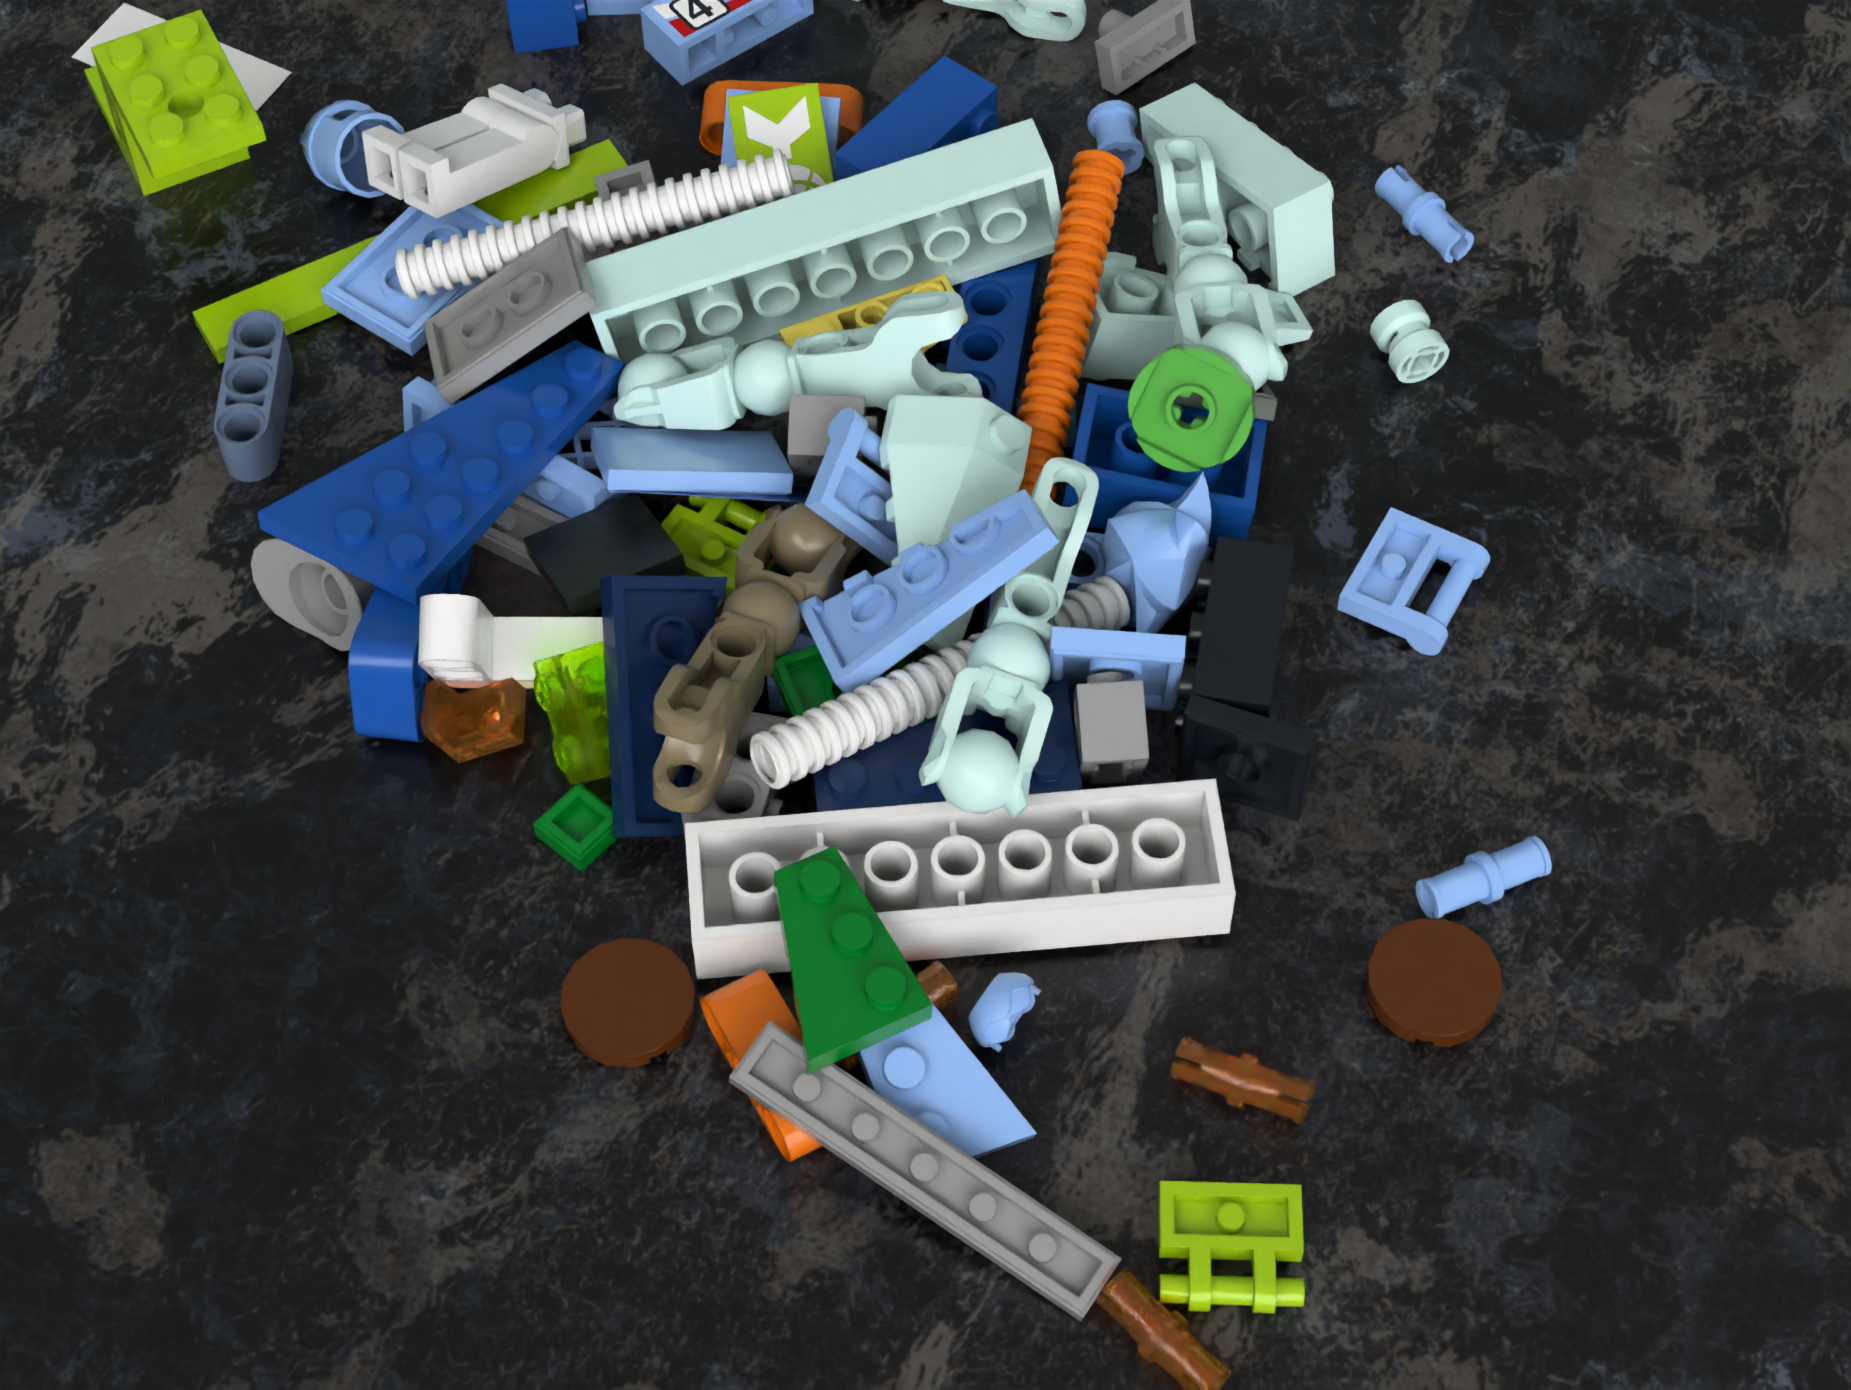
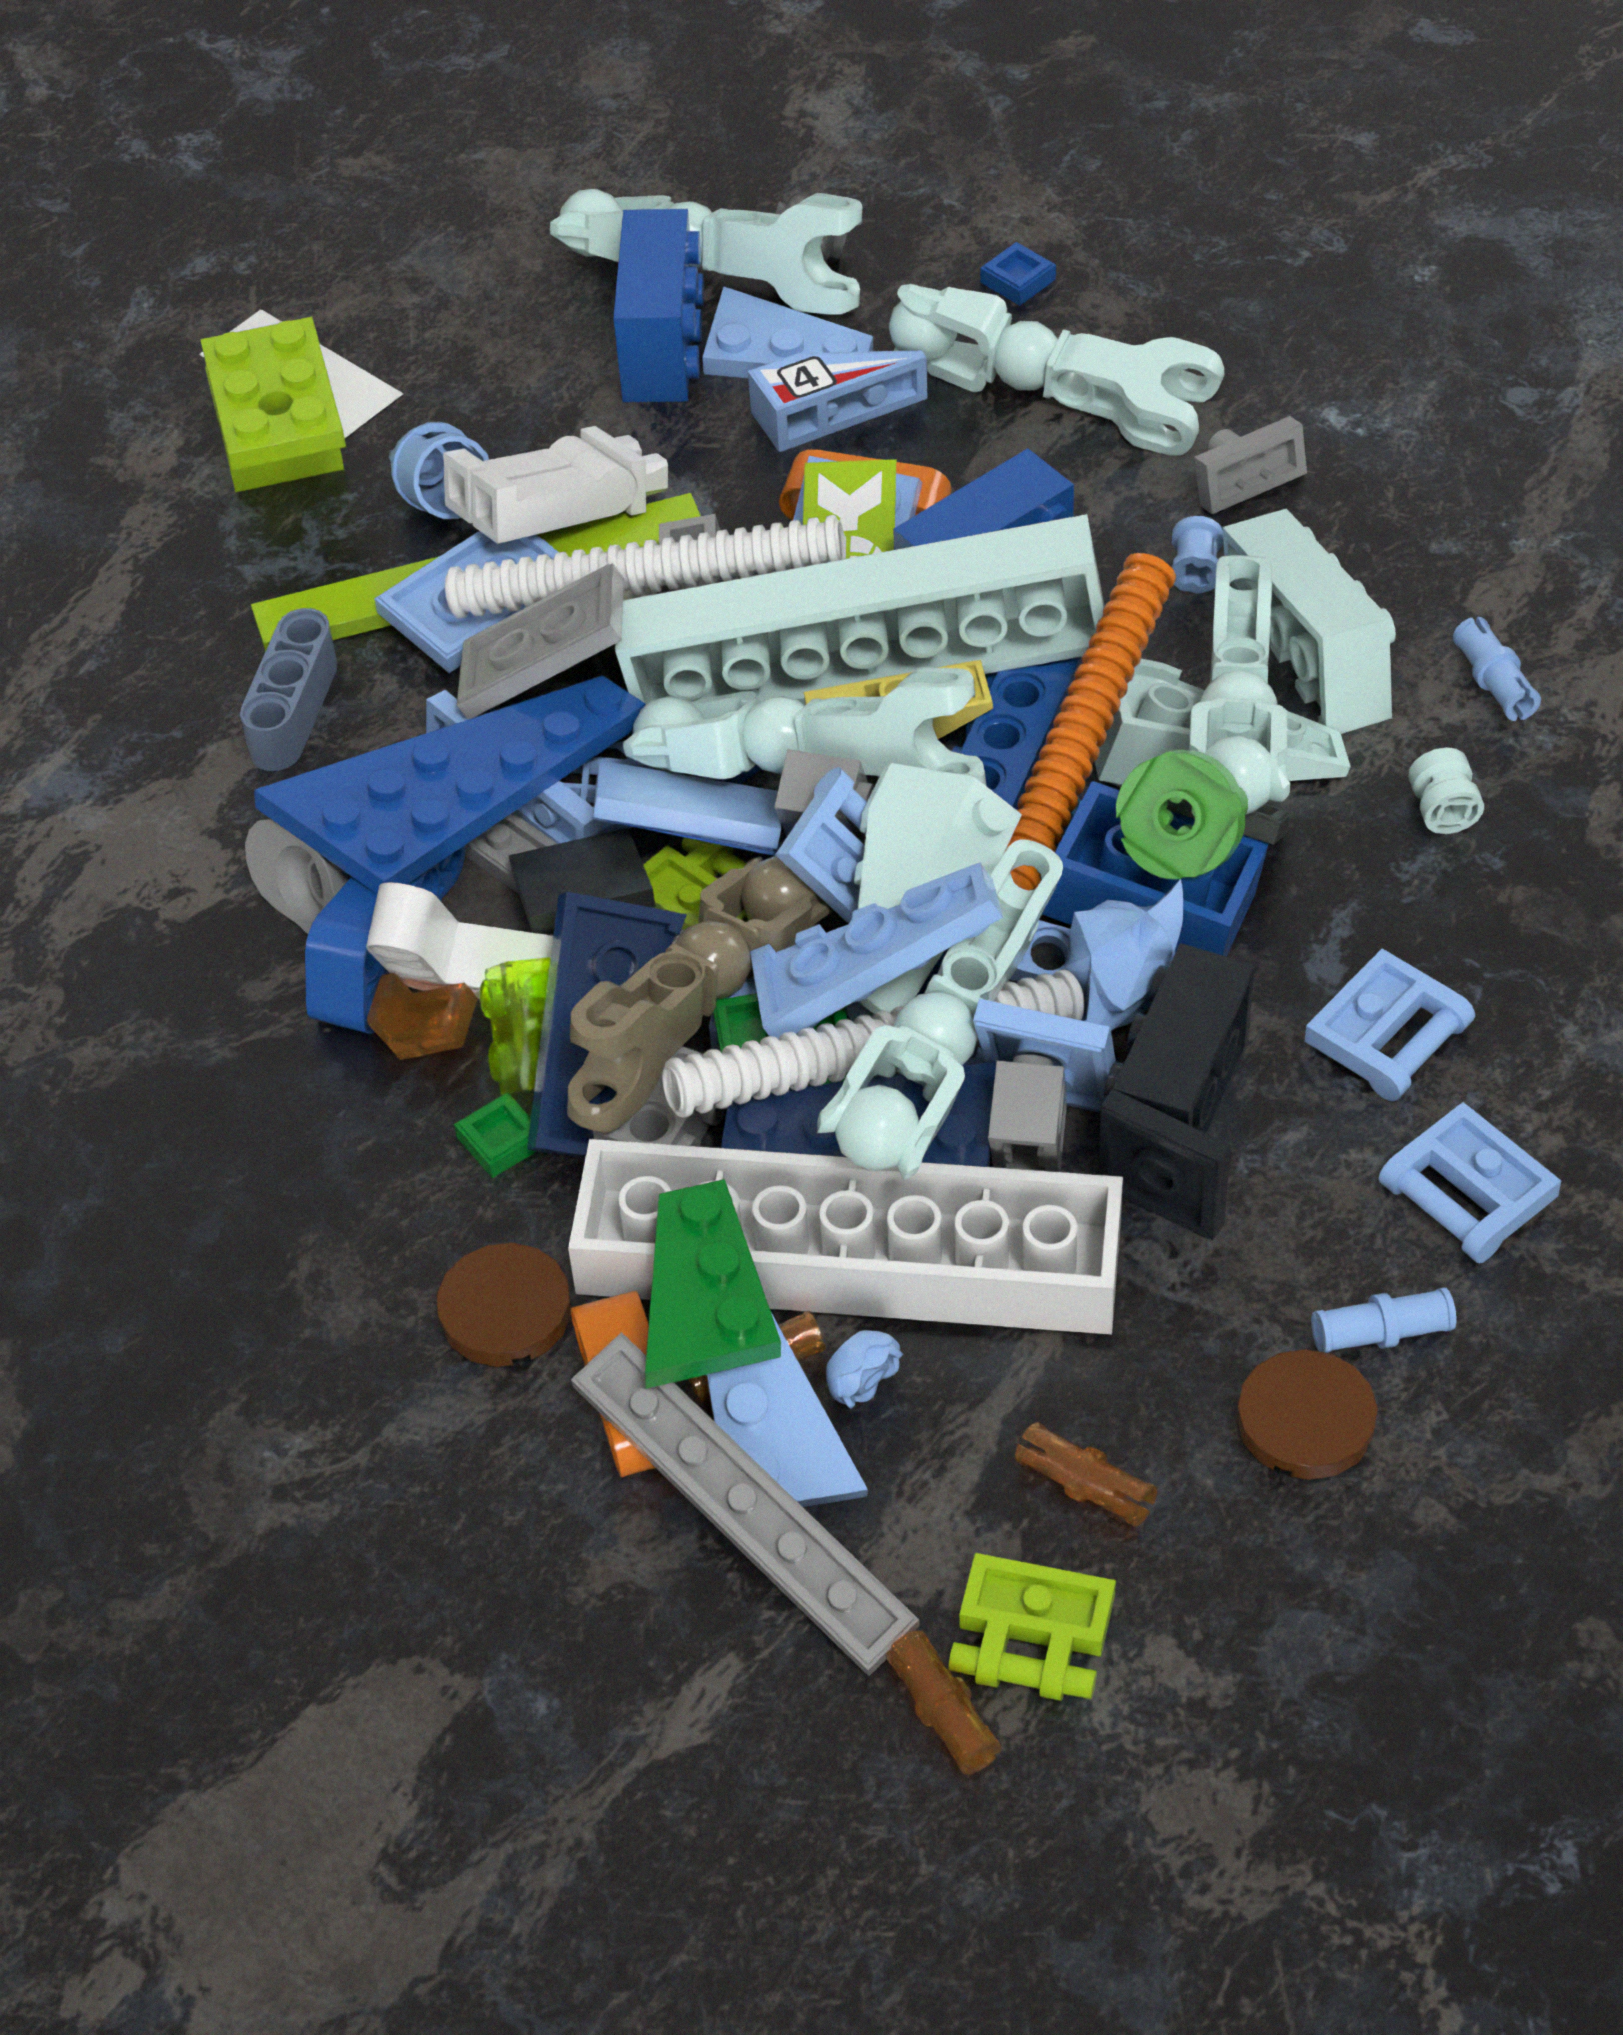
camera: 15 degrees right, 5 degrees down
(1539, 711) = (1484, 1168): none -> light blue plate

